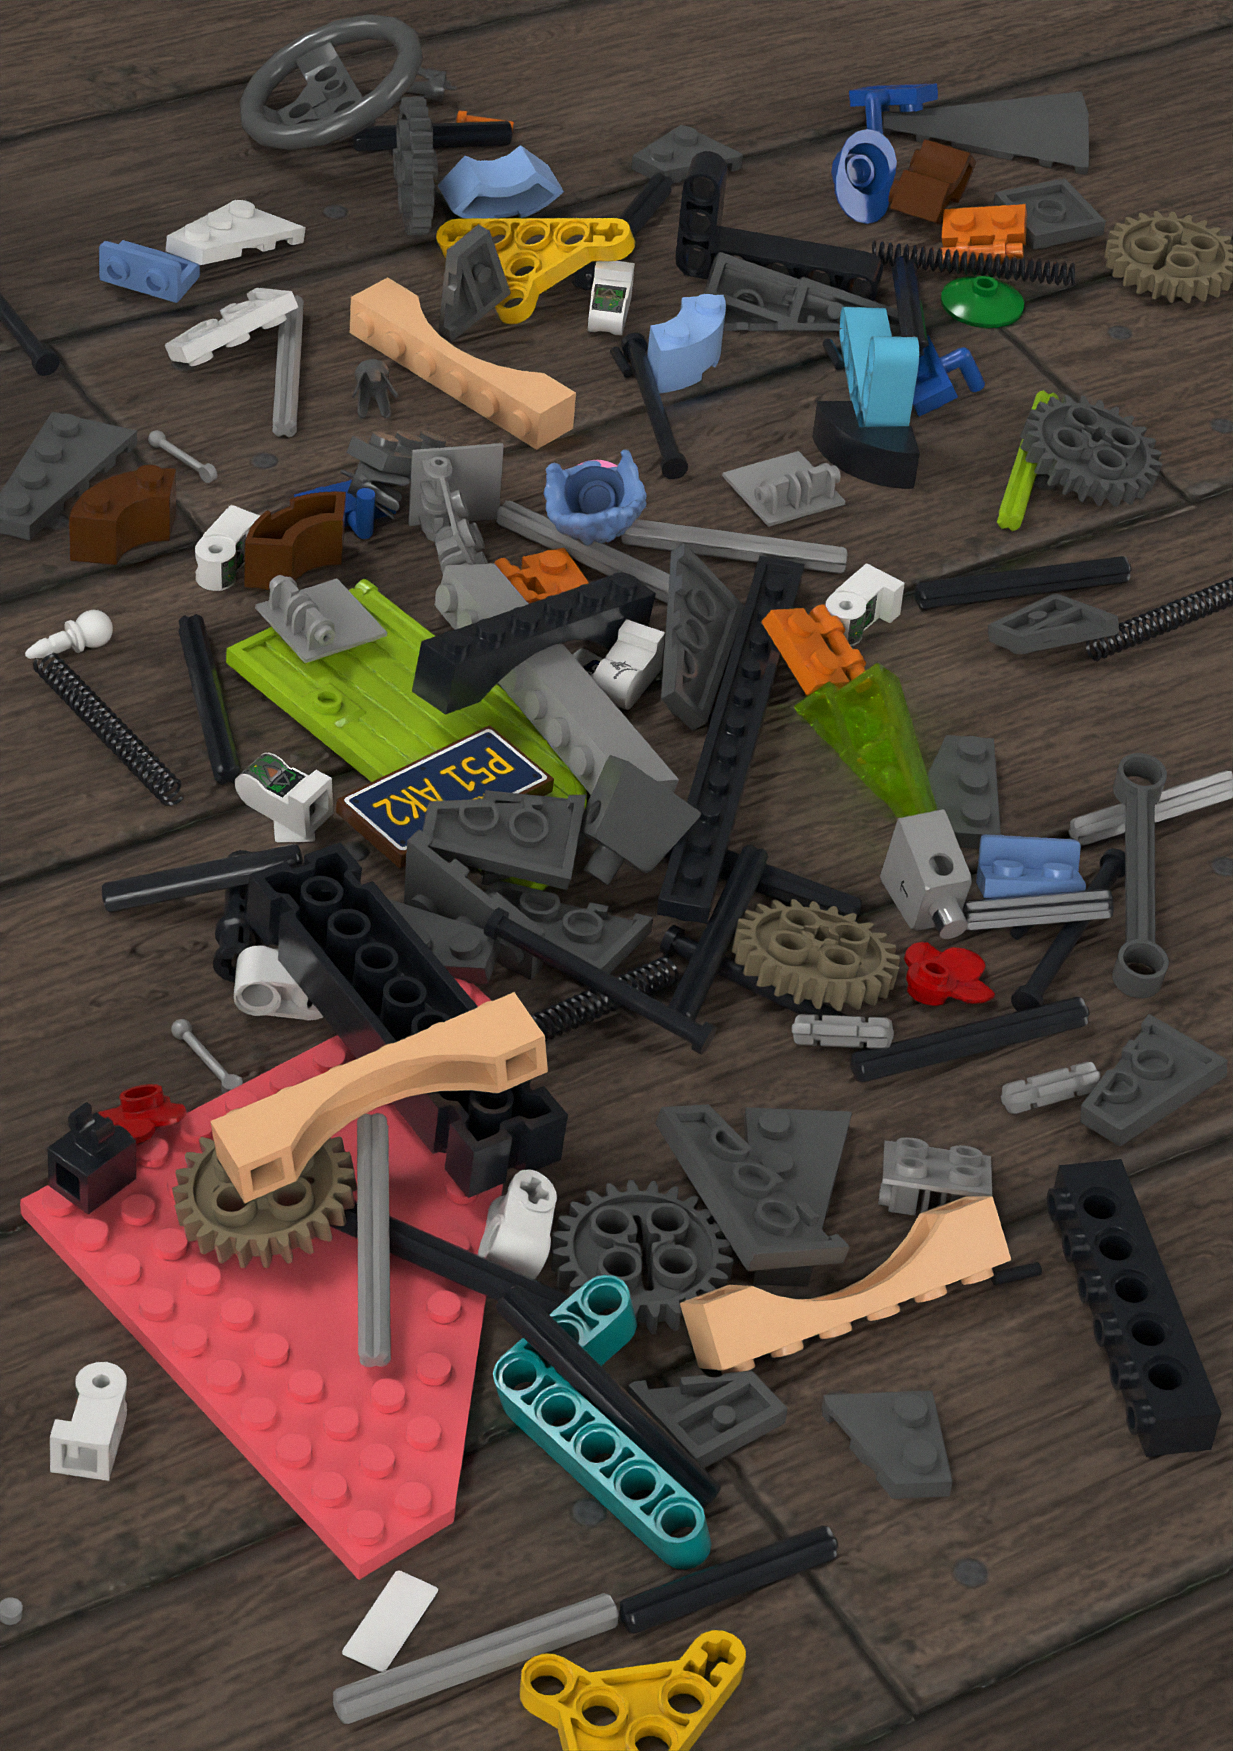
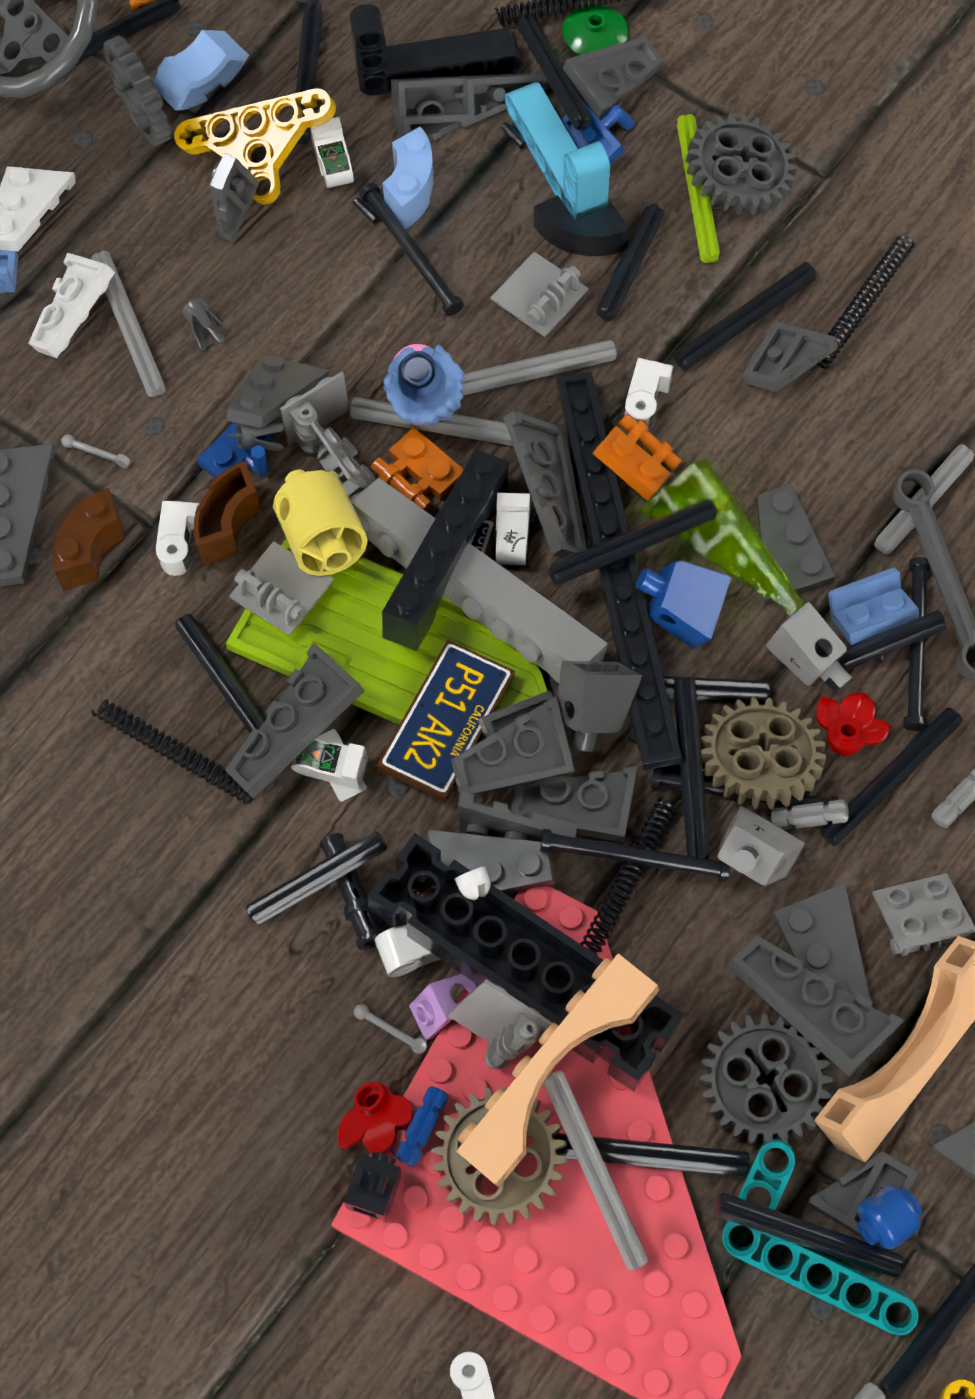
camera: 15 degrees left, 25 degrees up
(90, 630) = (116, 662): white bar -> none
(181, 1137) = (422, 1126): none -> blue axle
(254, 730) = (304, 711): none -> dark grey wing
(279, 1032) = (435, 1003): none -> lavender bracket
(333, 1030) = (500, 1021): none -> light grey hinge
(382, 895) = (474, 883): none -> white hinge
(398, 566) = (319, 522): none -> light yellow cylinder
(518, 401) = (317, 291): light nougat arch -> none
(521, 1224) = (676, 1100): white piece -> none
(721, 1419) = (889, 1217): none -> blue head
(749, 1021) = (758, 848): none -> light grey torso
(763, 707) = (632, 541): none -> black axle
(798, 785) = (685, 600): none -> torso
(908, 495) = (630, 262): none -> black axle
(980, 326) = (612, 72): none -> dark grey wing

